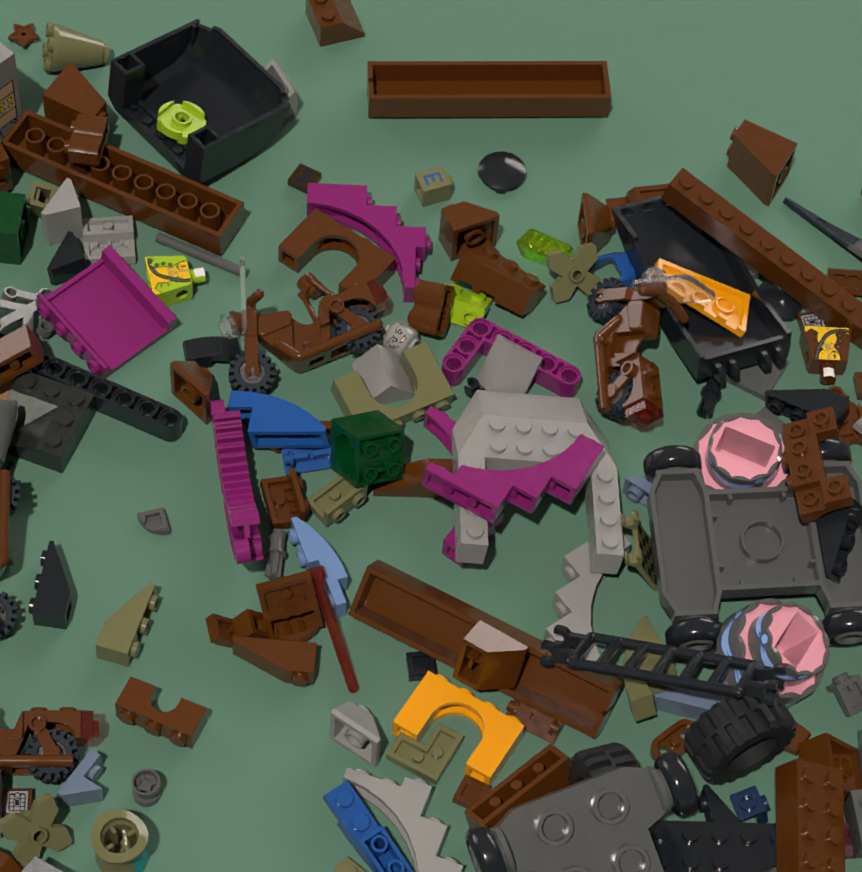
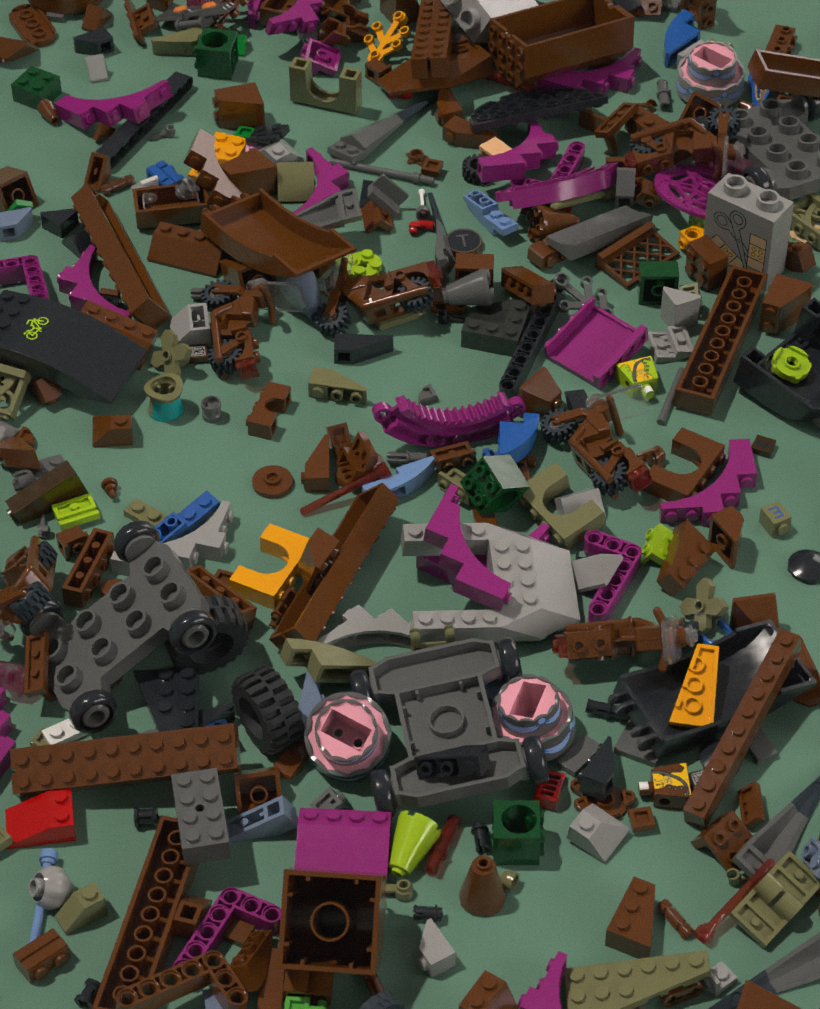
camera: 90 degrees right, 10 degrees down
(67, 261) = (649, 319): black slope -> none
(79, 786) = (212, 376): sand blue slope -> none
(87, 139) = (742, 303): reddish brown brick -> none
(291, 734) = (272, 482): none -> reddish brown piece
(356, 731) = (261, 506): light grey slope -> none
(399, 337) = (614, 508): light grey head -> none
(429, 759) = (248, 552): olive plate -> none
(431, 307) = (643, 519): reddish brown brick -> none
(536, 244) = (730, 587): clear neon green slope -> none
(744, 687) = (281, 676): black bar -> none
(805, 460) = (506, 728): reddish brown bracket -> none

